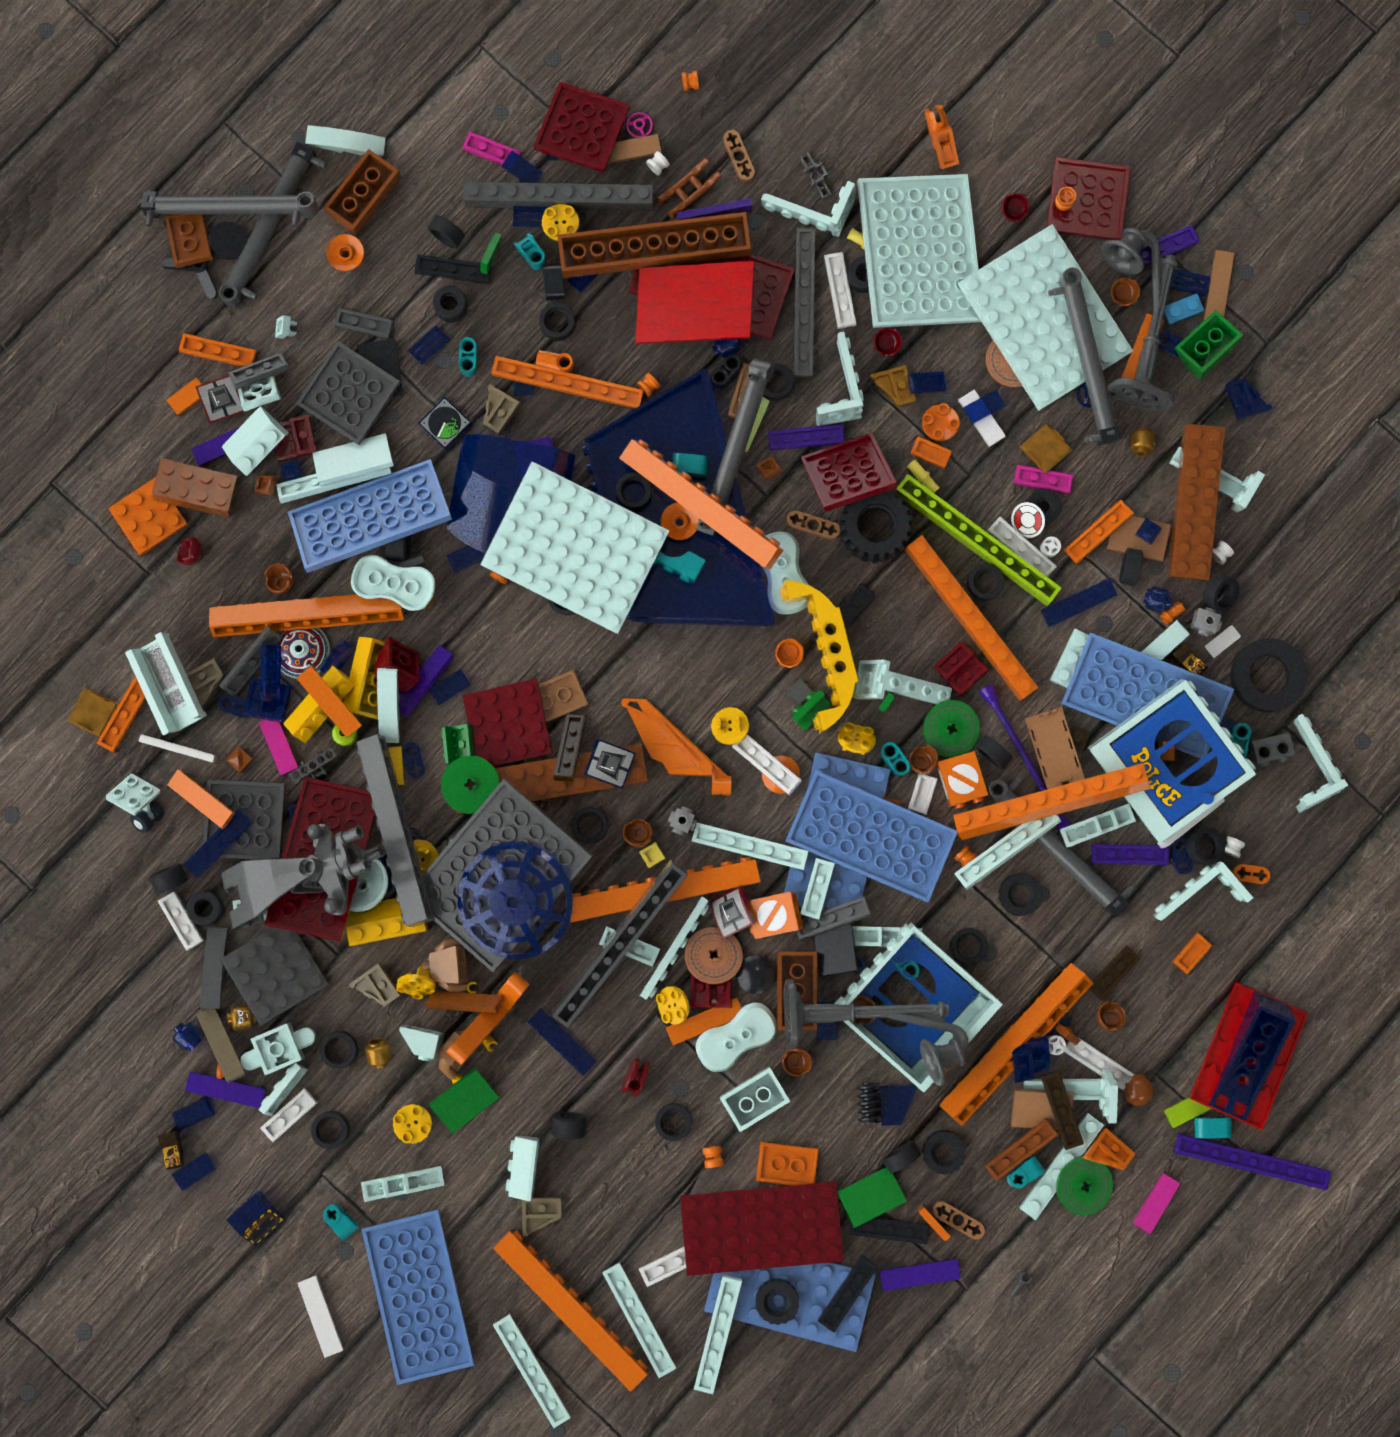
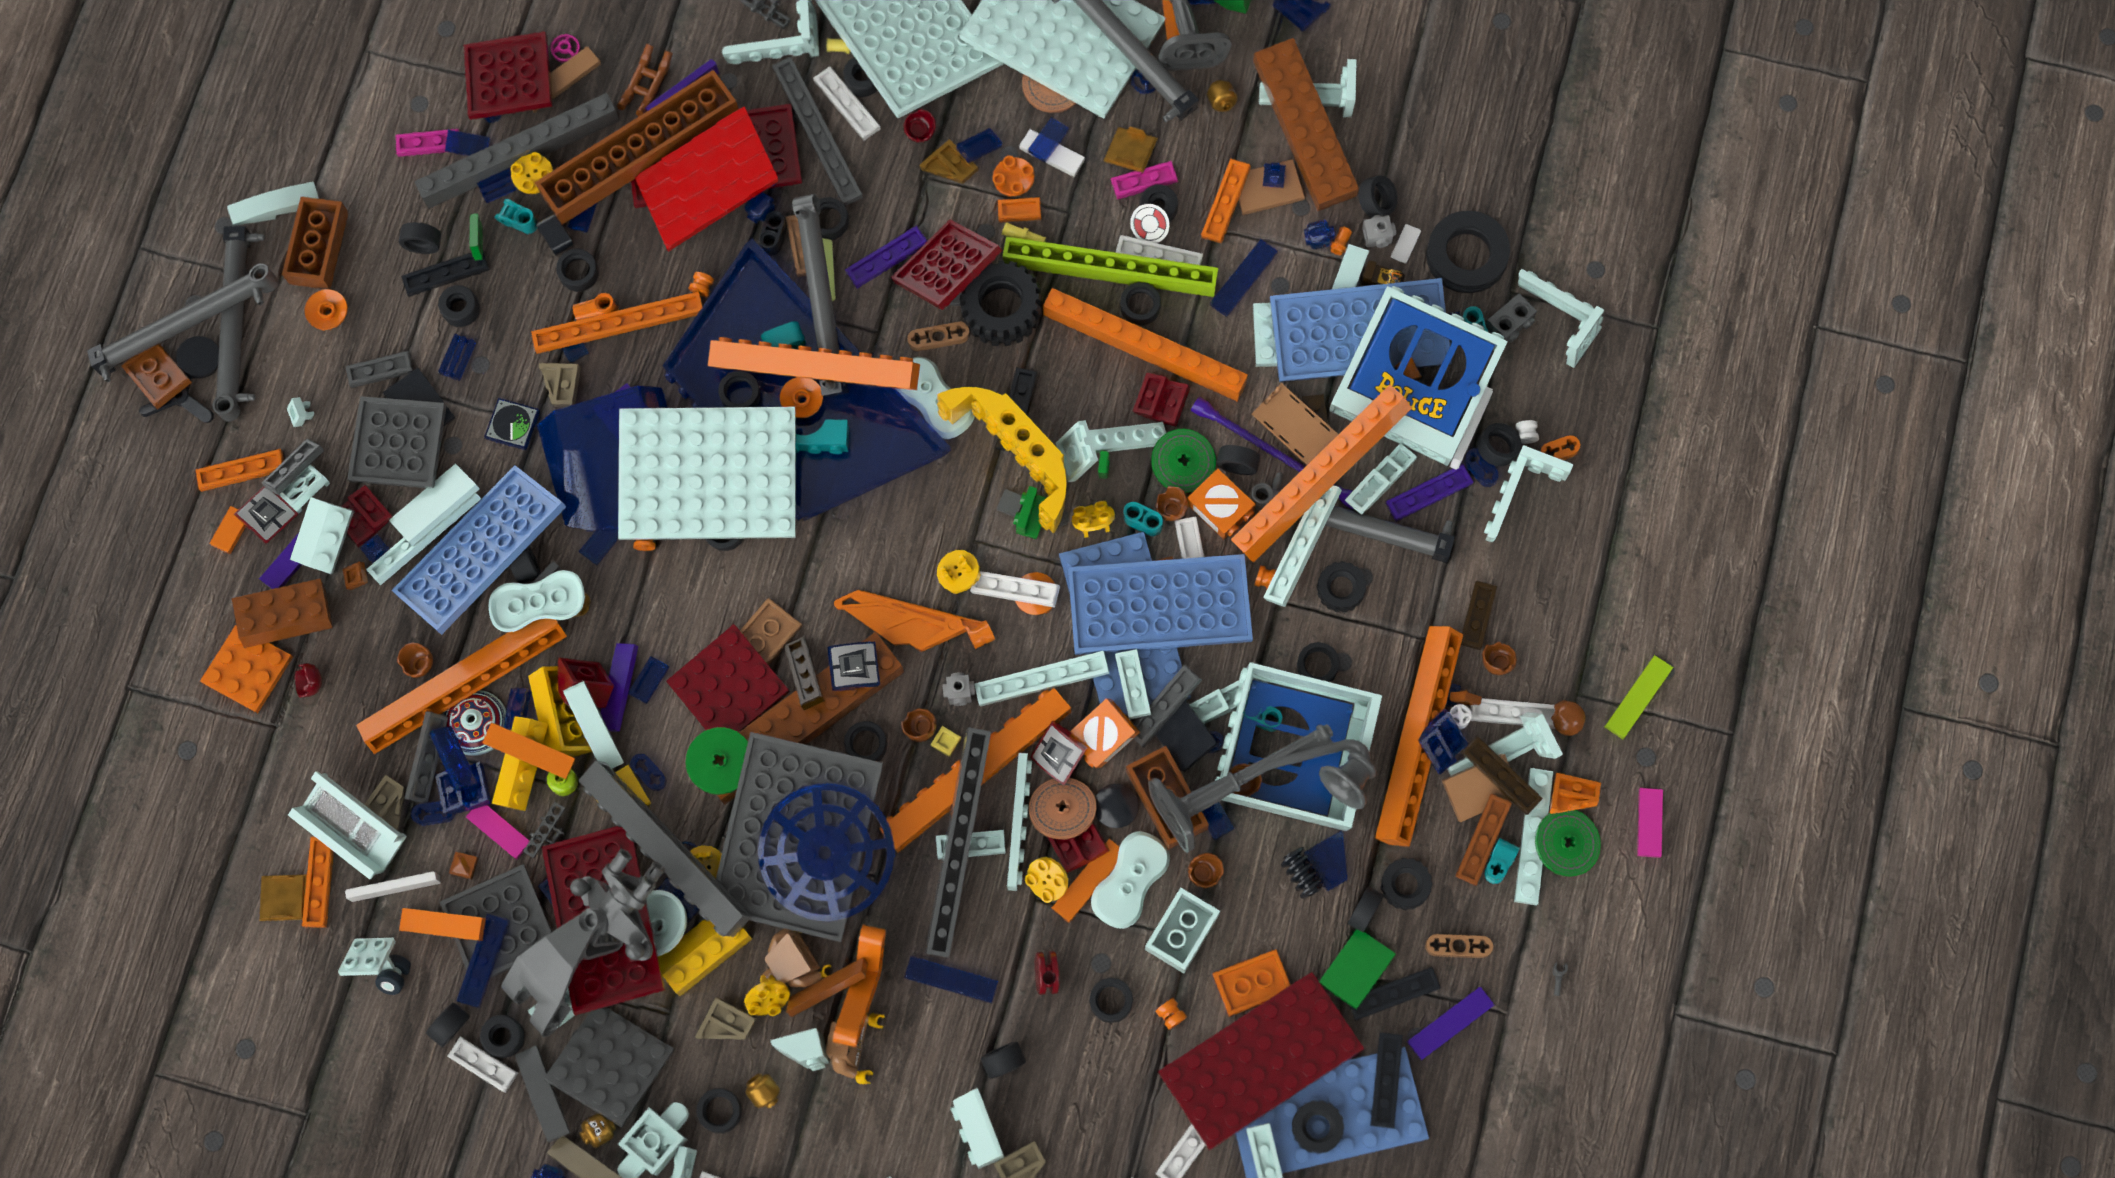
camera: 20 degrees left, 10 degrees down
(415, 1132) = (828, 1138): yellow plate -> none
(457, 742) = (683, 728): green bracket -> none
(463, 1100) = (879, 1093): green tile -> none
(468, 357) = (503, 347): teal beam -> none
(657, 163) = (601, 73): white wheel -> none
(738, 142) = (676, 20): medium nougat beam -> none
(768, 468) = (864, 303): dark orange tile -> none
(789, 653) = (980, 469): orange hair -> none
(843, 410) = (912, 207): light aqua bracket -> none
(933, 1223) = (1435, 961): orange tile -> none
(1053, 545) = (1189, 235): white wheel -> none
(1131, 566) = (1275, 215): black tyre -> none
(1192, 953) = (1545, 556): orange tile -> none
(1213, 1127) = (1663, 716): teal beam -> none
(1222, 552) = (1357, 159): white wheel -> none
(1248, 1055) = (1658, 627): piece -> none
(1252, 1161) = (1722, 730): dark purple tile -> none

